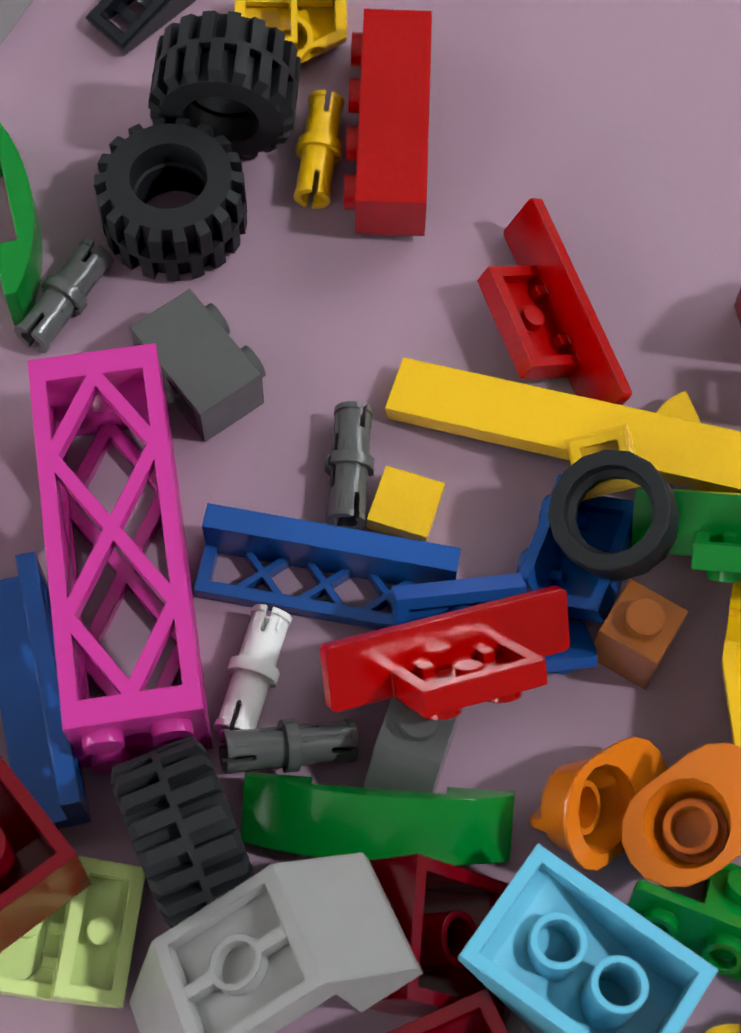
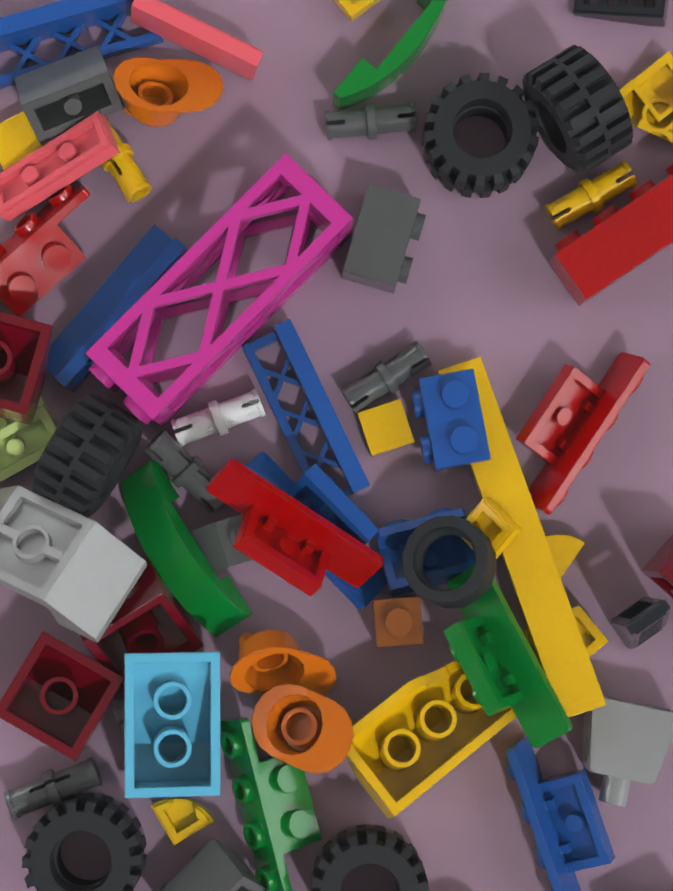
camera: 50 degrees right, 20 degrees up
(451, 426) = (451, 420): none -> blue bracket

